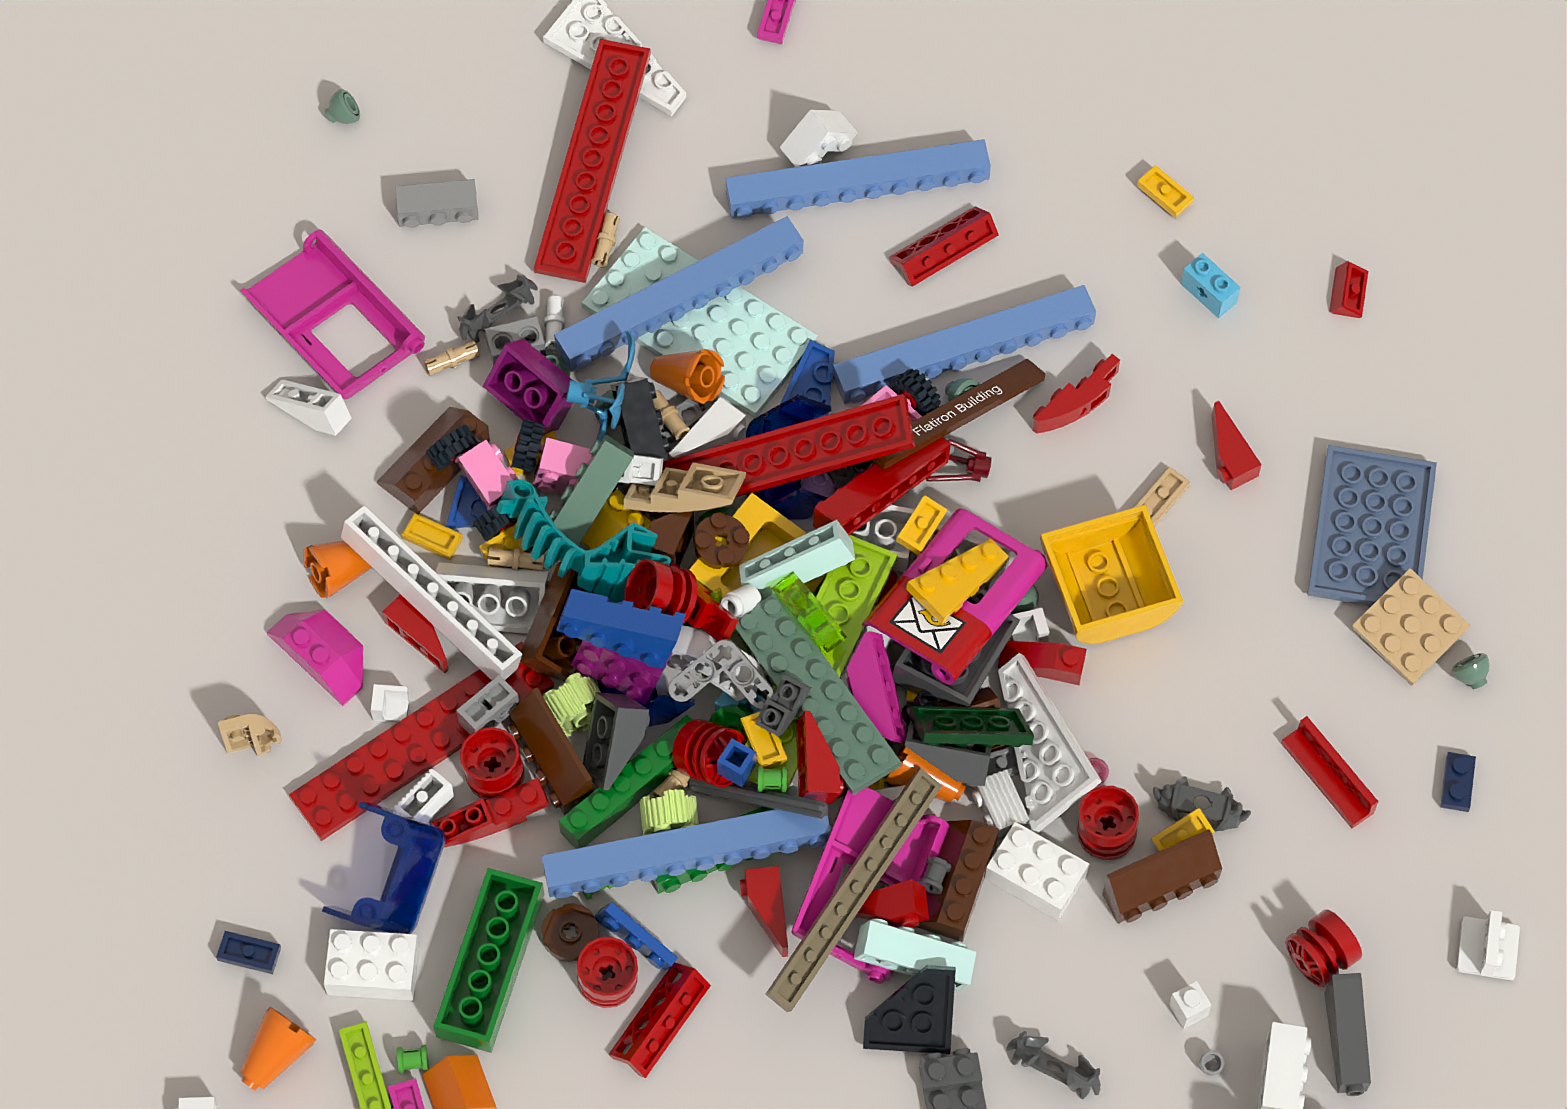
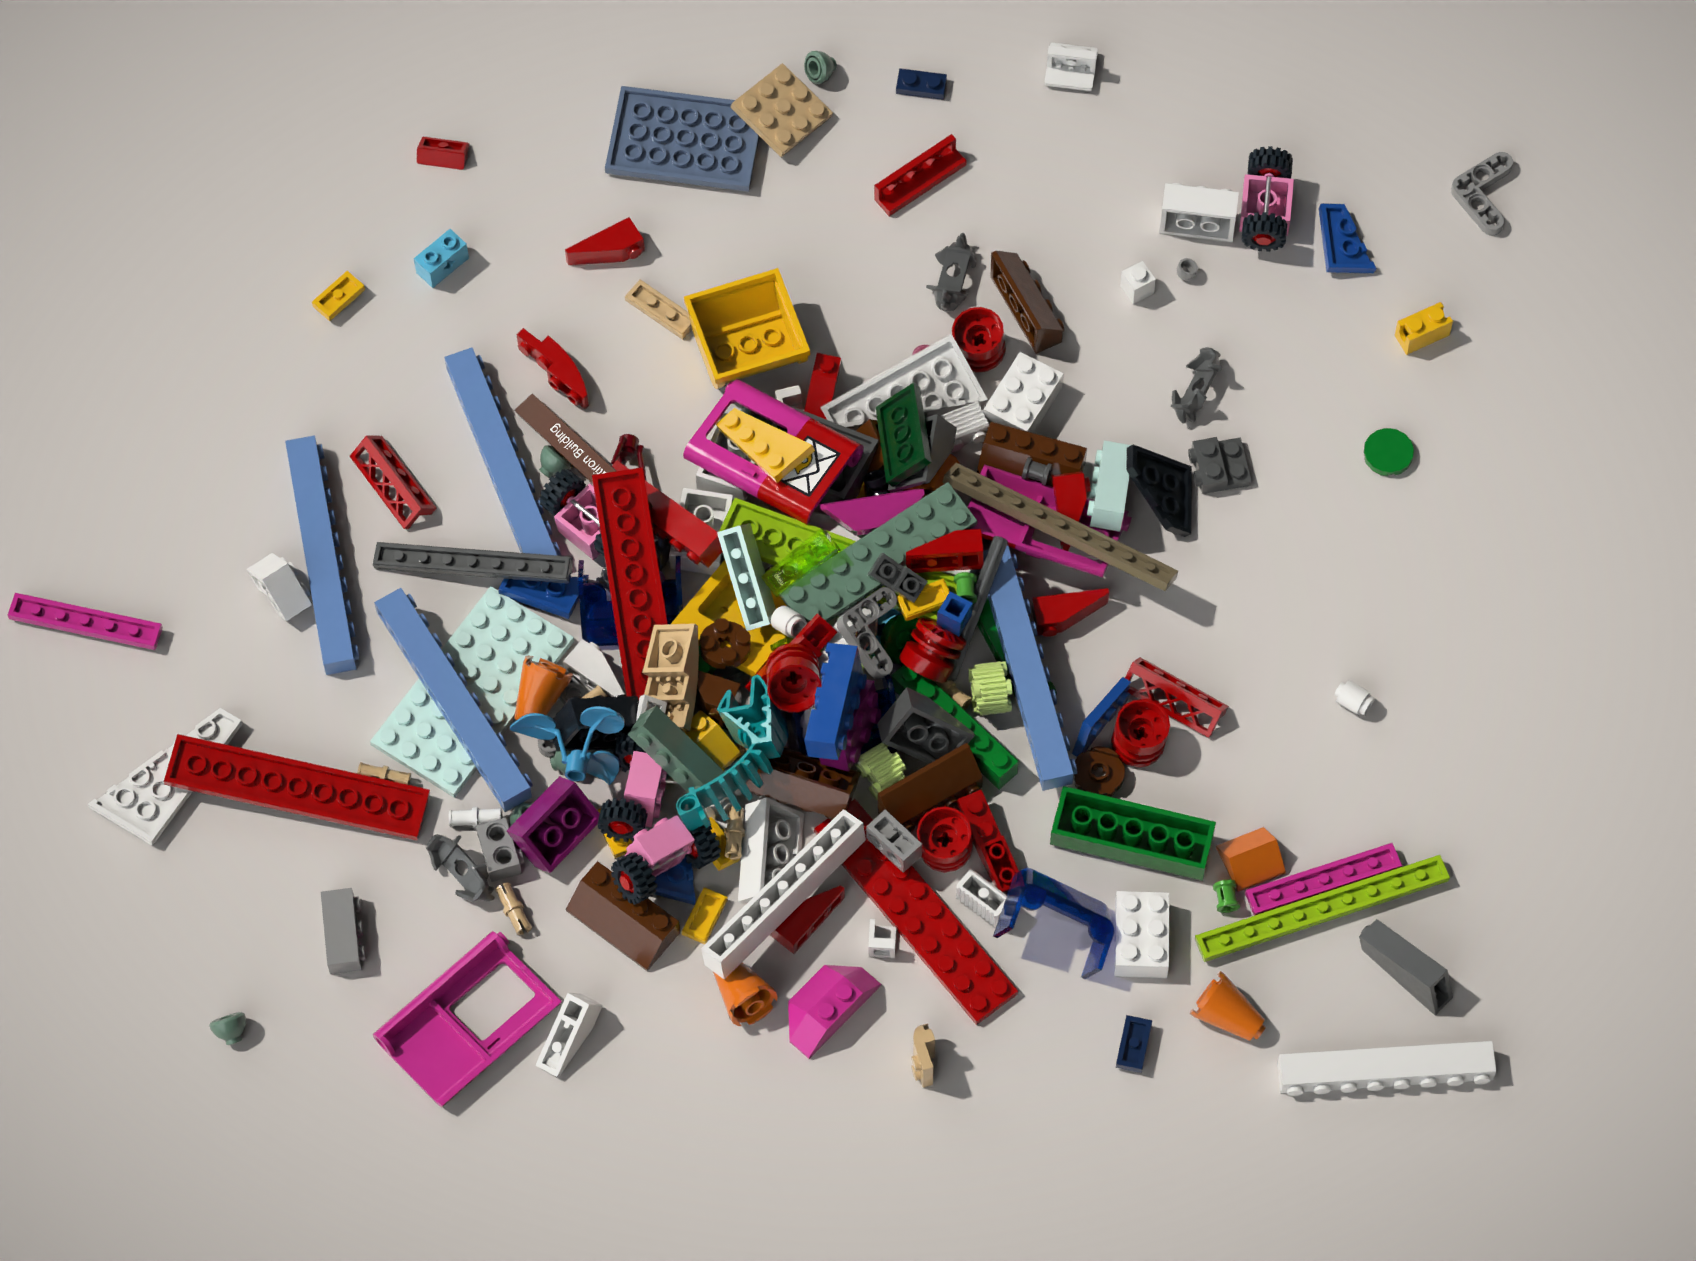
camera: 90 degrees left, 0 degrees up
(839, 315) = (473, 562): none -> dark grey tile
(921, 525) = (703, 480): yellow plate -> none
(1182, 829) = (983, 285): yellow plate -> none
(1323, 948) = (1085, 179): red wheel -> none
(1348, 1033) = (1155, 165): dark grey slope -> none

